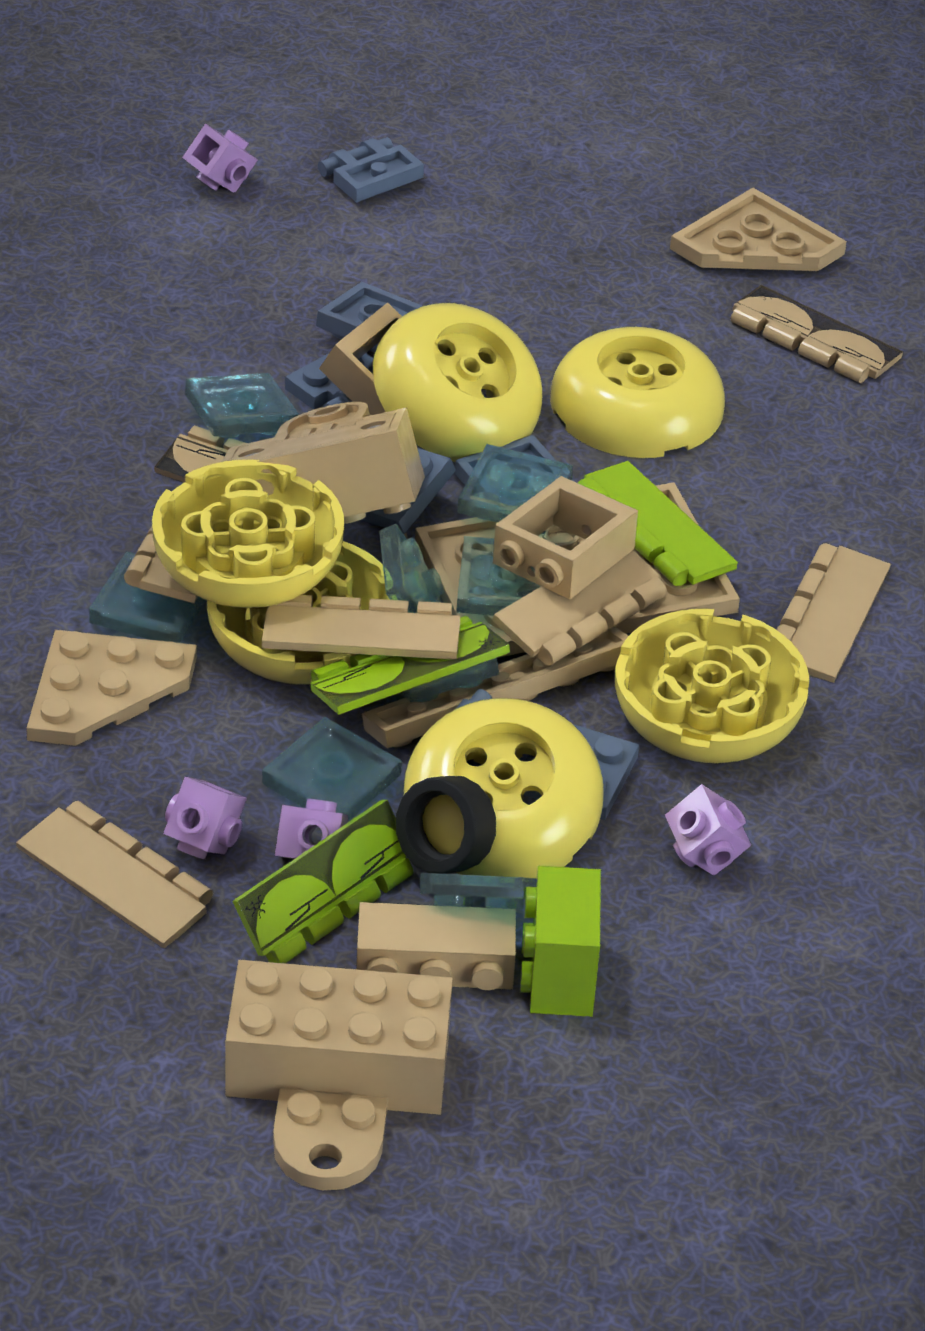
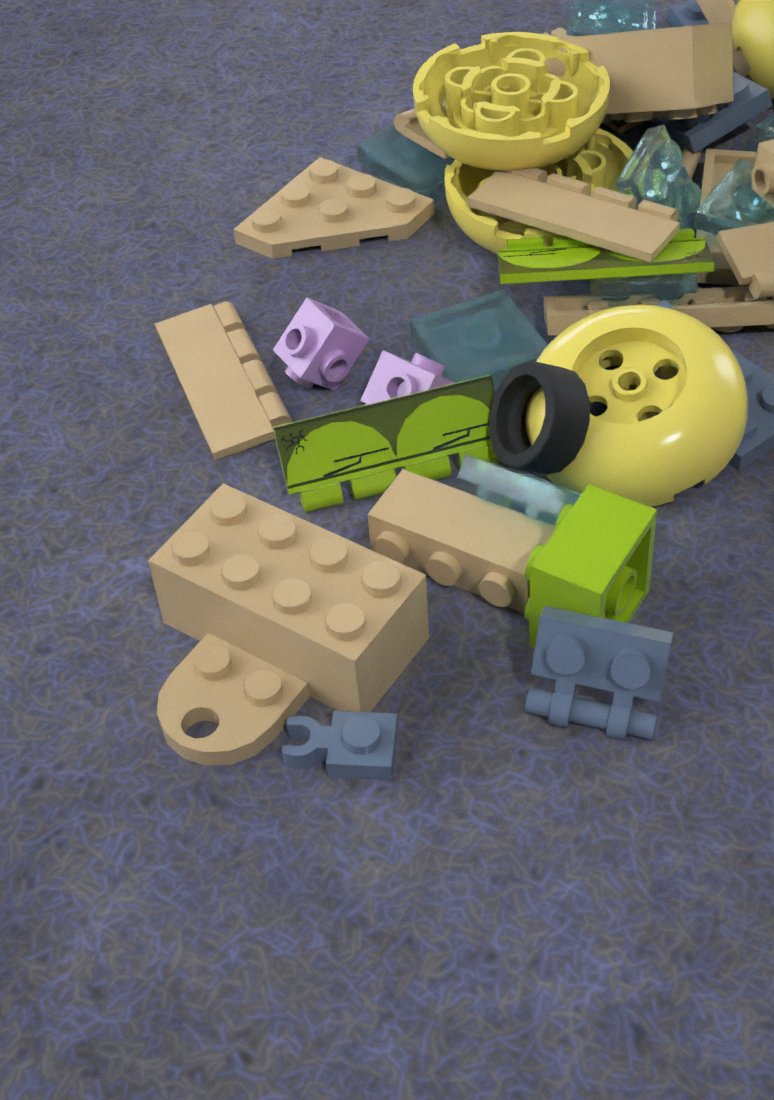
camera: 35 degrees right, 5 degrees up
(449, 1129) = (353, 746): none -> sand blue plate
(609, 995) = (601, 656): none -> sand blue plate

